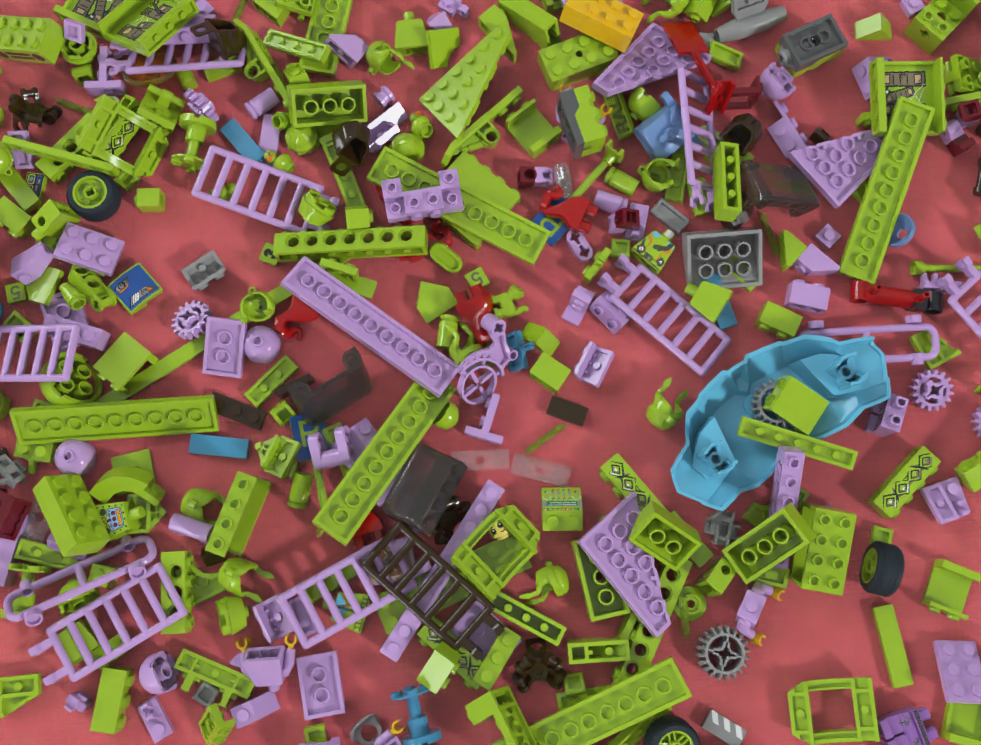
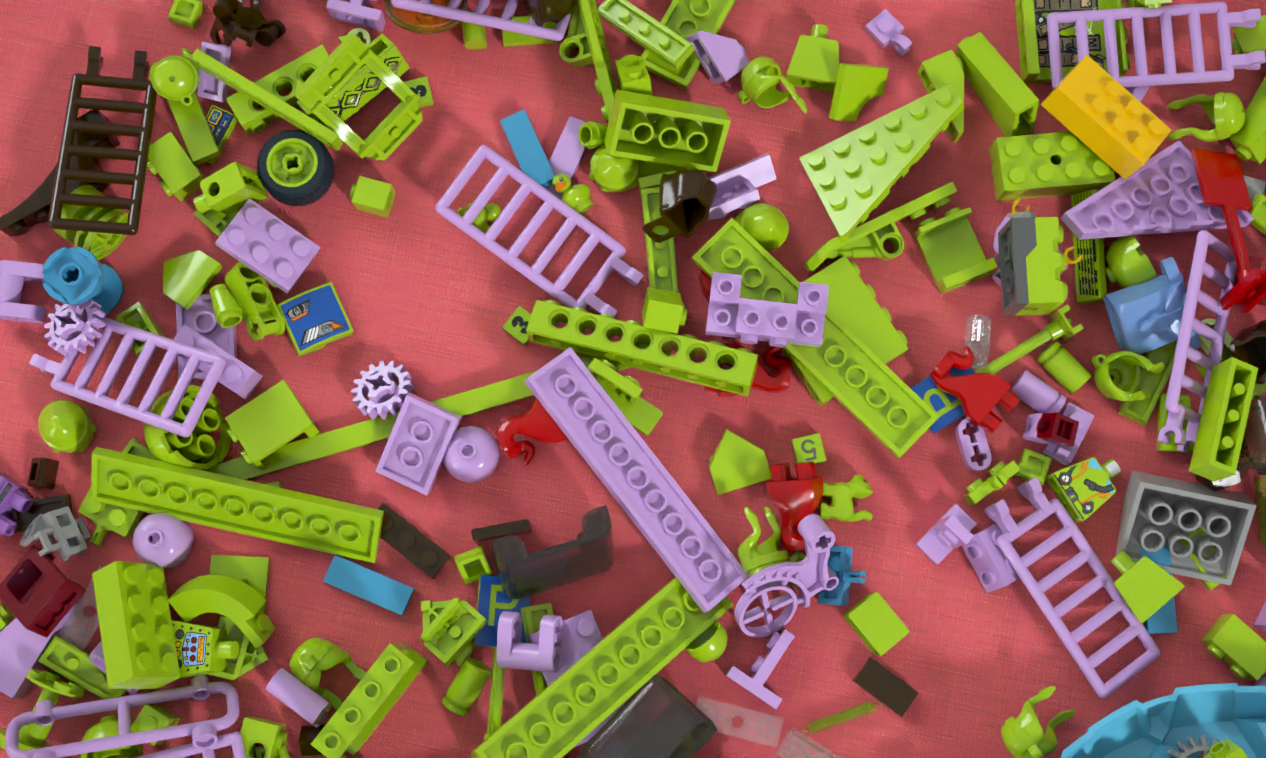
camera: 20 degrees right, 0 degrees up
(16, 293) = (148, 276): lime tile -> none
(31, 263) = (181, 241): lavender slope -> none
(74, 106) = (306, 29): lime piece -> none
(126, 180) = (347, 158): lime tile -> none
(159, 107) = (427, 67): lime plate -> none
(195, 136) = (463, 123): lime piece -> none
(200, 104) = (484, 82): lavender gear -> none
(204, 270) = (420, 322): light grey bracket -> none
(251, 305) = (471, 402): lime hair -> none
(262, 103) = (571, 100): lavender piece -> none
(271, 380) = (469, 512): lime tile -> none
(316, 209) = (607, 283): lime cone -> none
(383, 97) = (749, 140): lavender wheel -> none
(421, 125) = (792, 199): lime animal -> none
(439, 21) = (862, 51): lavender tile -> none
(444, 336) = (737, 525): lime piece -> none
(445, 257) = (772, 405): lime tile -> none
(534, 176) = (936, 323): leg -> none
(541, 337) = (878, 566): lime slope -> none
(593, 364) = (944, 630): lavender bracket -> none
(669, 216) = (1120, 440): light grey tile -> none

